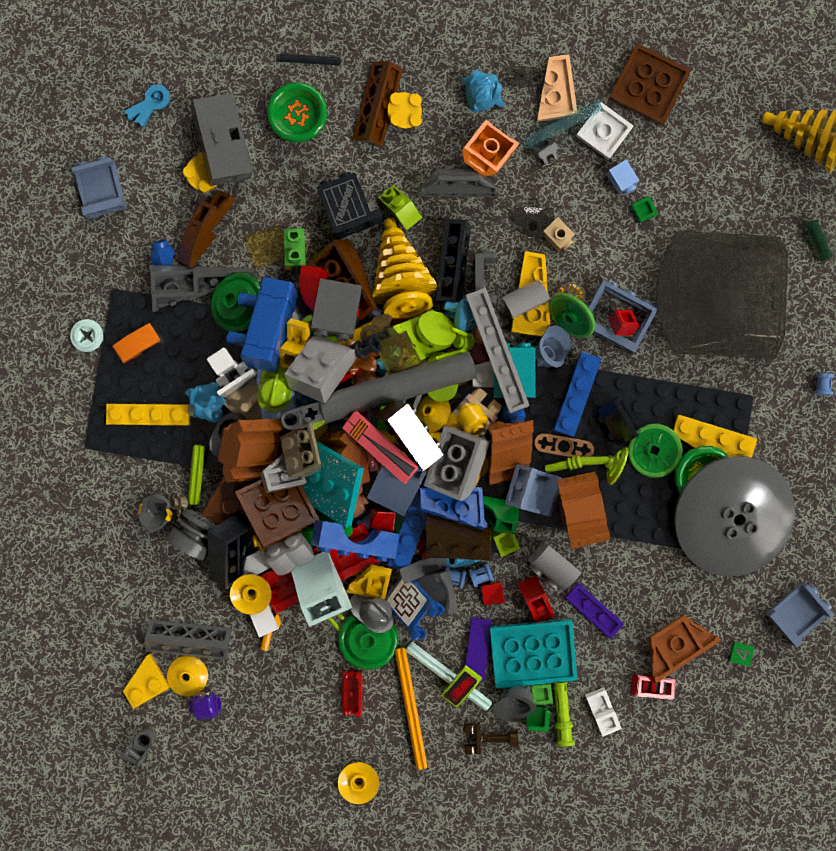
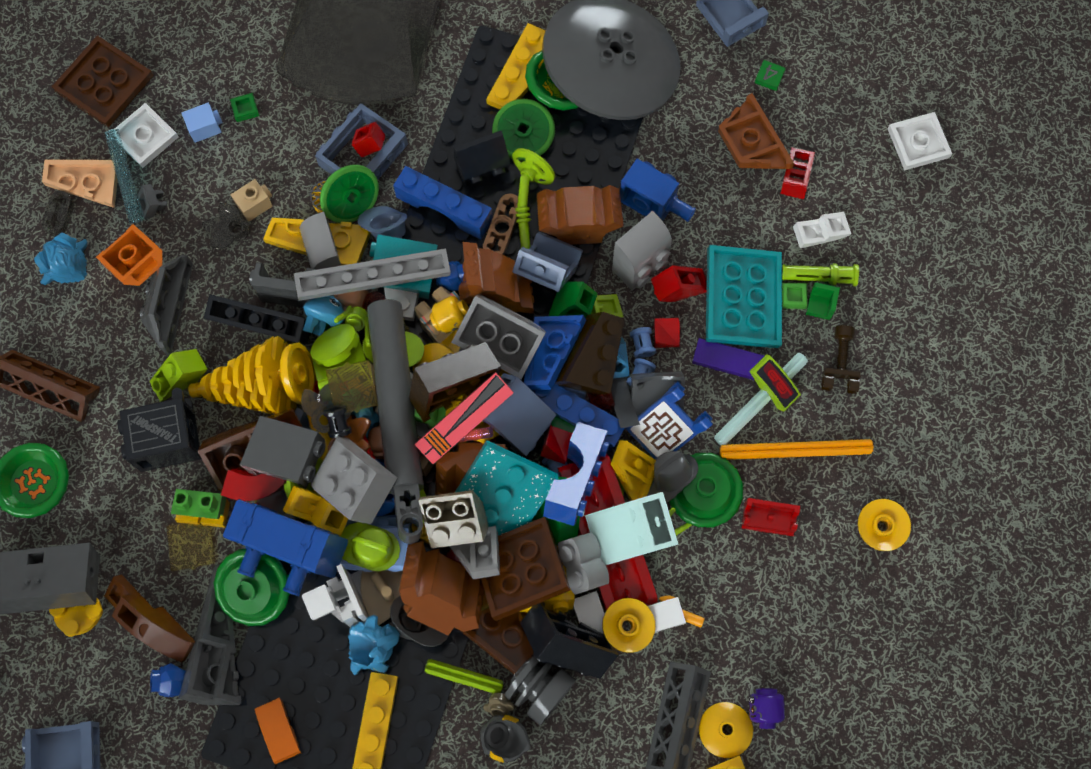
camera: 80 degrees left, 15 degrees down
(404, 110) = (61, 353): yellow piece -> none
(515, 704) = (803, 322): dark grey piece -> none
(594, 610) = (702, 223): dark purple tile -> none
(610, 569) = (650, 190): none -> blue brick
(696, 787) = (919, 141): none -> white plate

